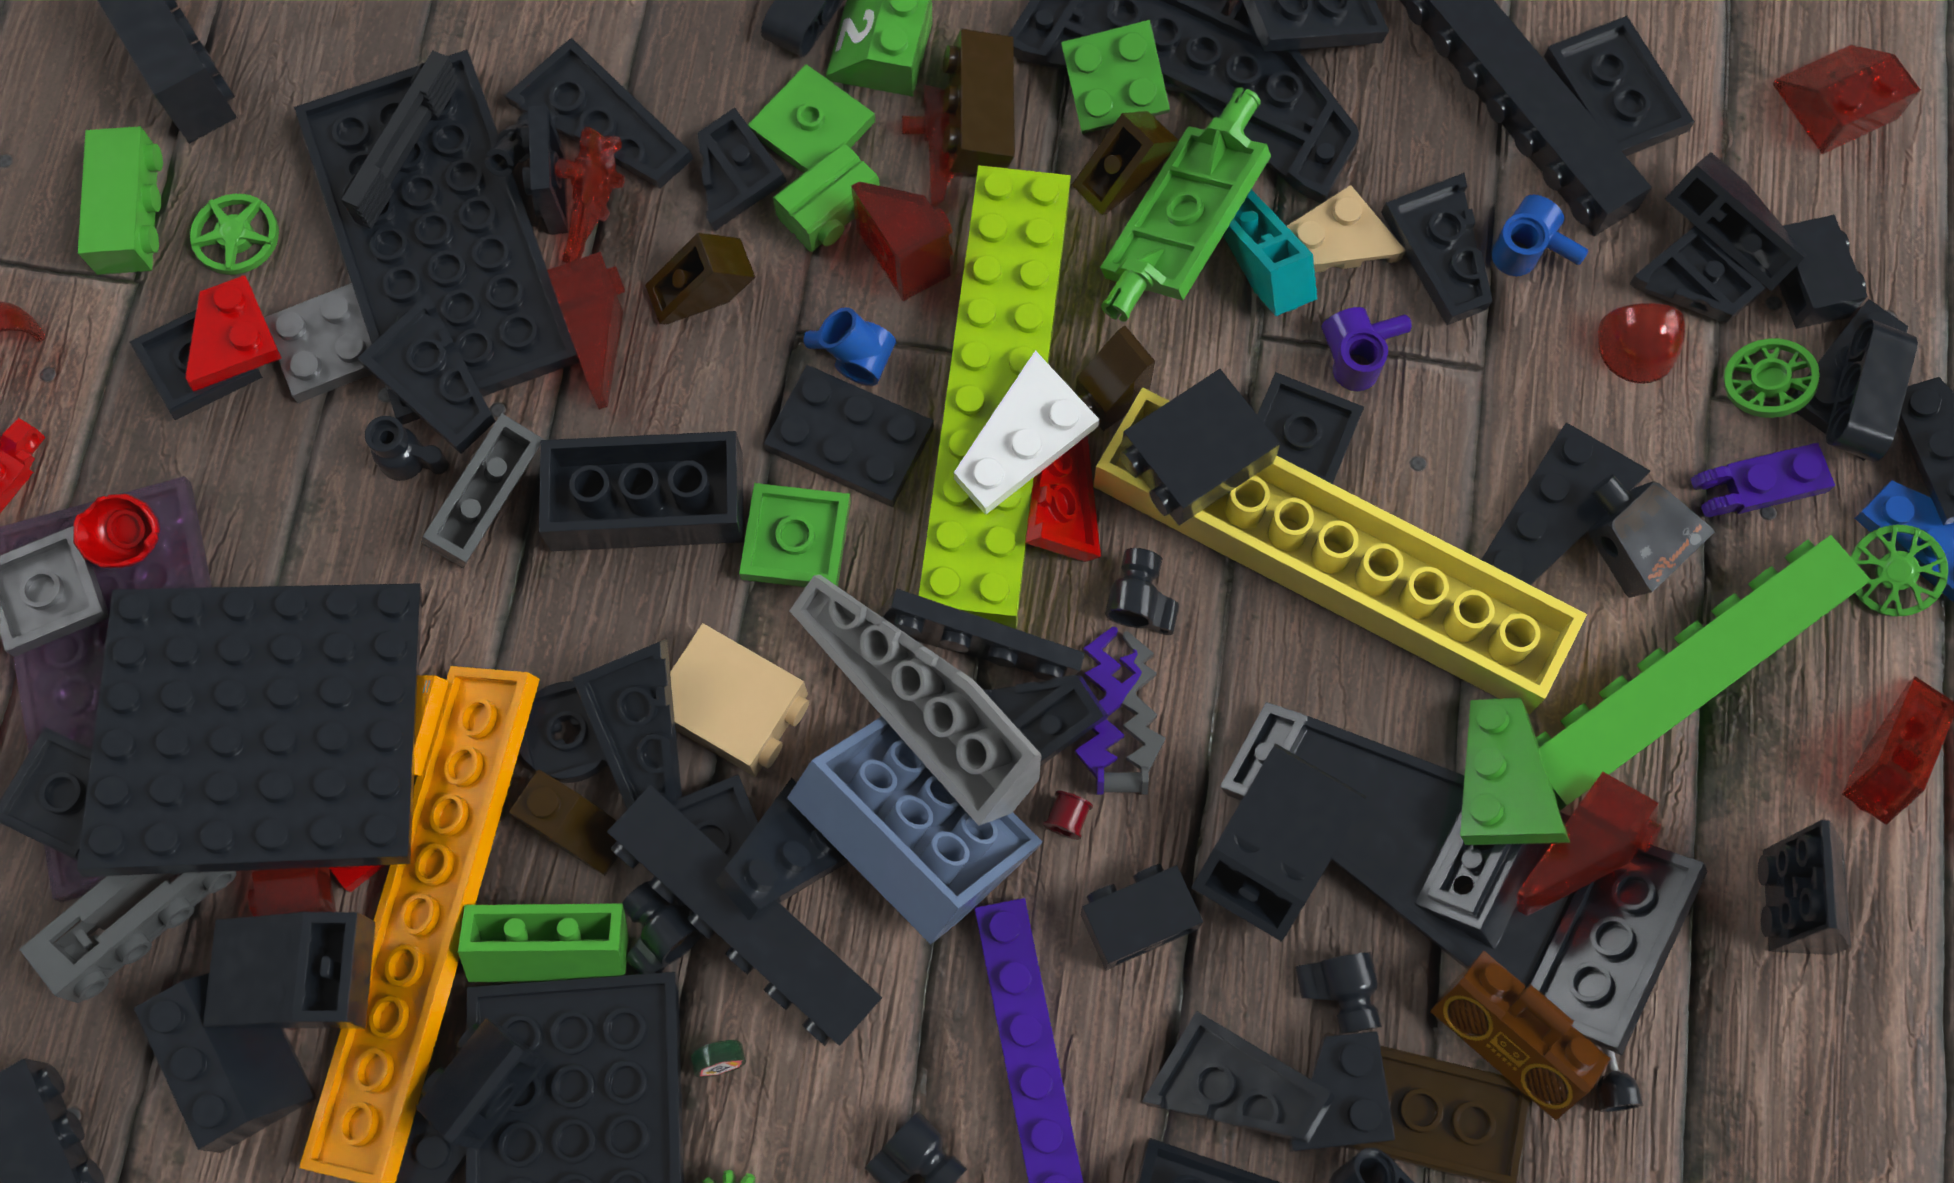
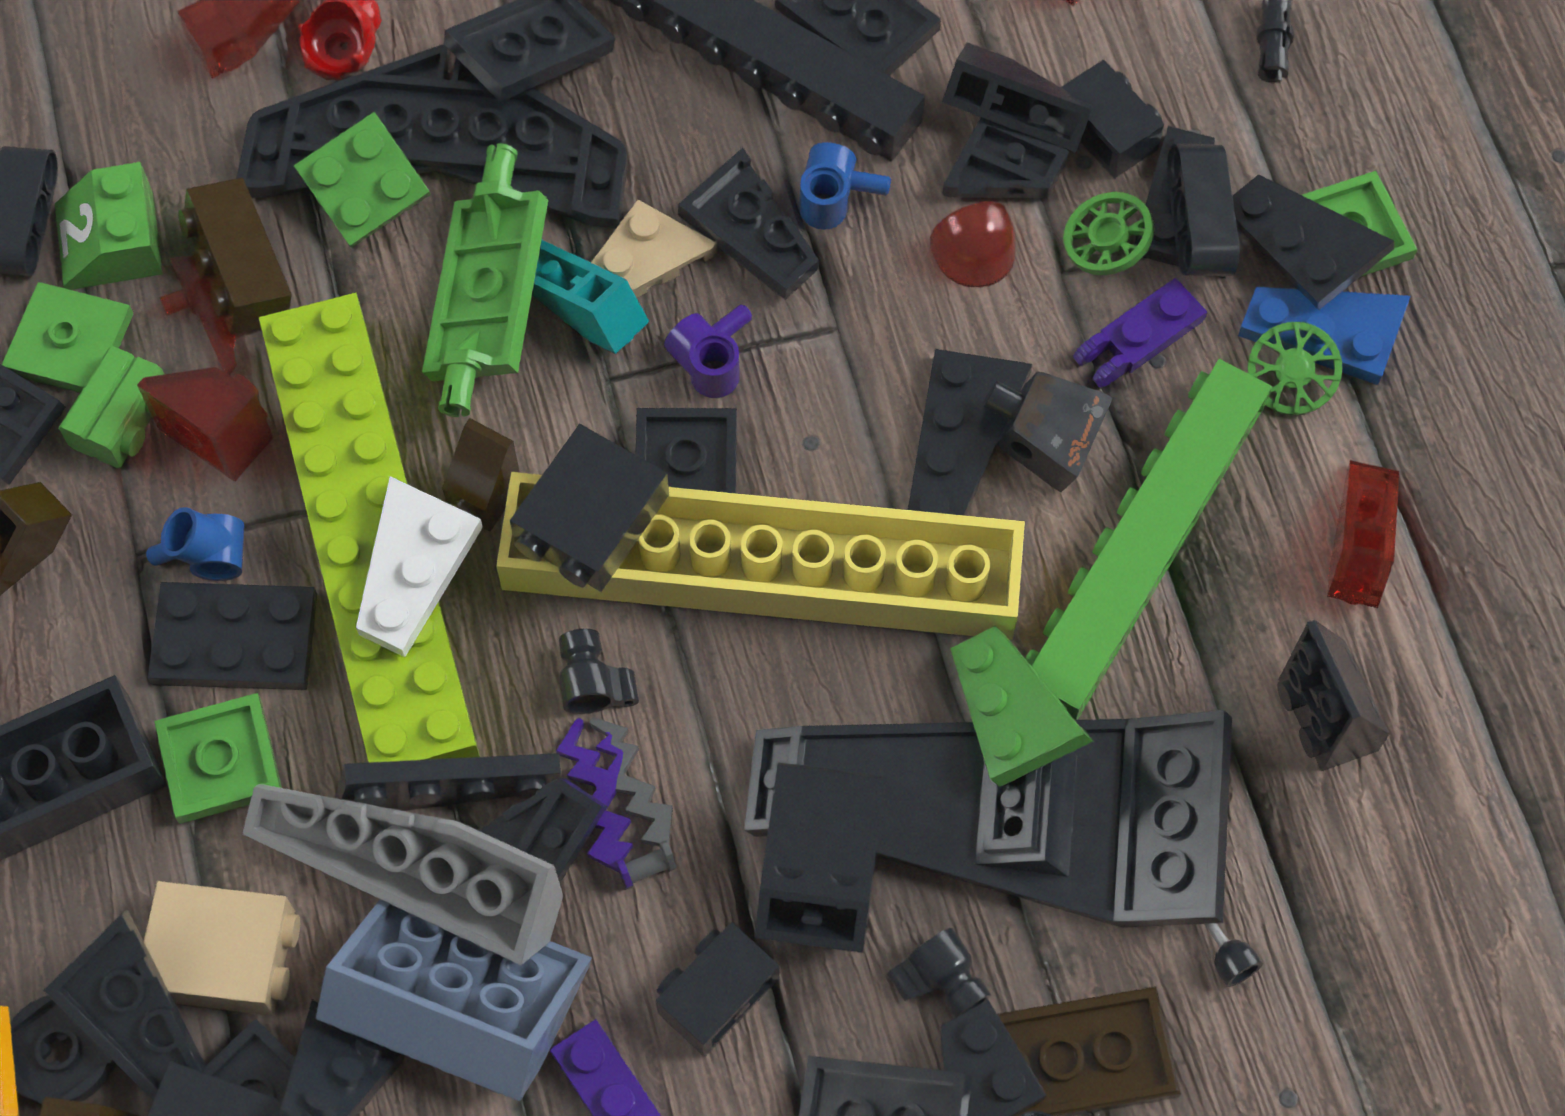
camera: 25 degrees left, 5 degrees down
(1064, 507) = (481, 620): red wing -> none
(1068, 815) = (606, 920): dark red axle -> none
(1124, 160) = (404, 258): dark brown slope -> none
(1521, 1035) = (1123, 944): reddish brown piece -> none
(1602, 836) = (1124, 726): clear red slope -> none

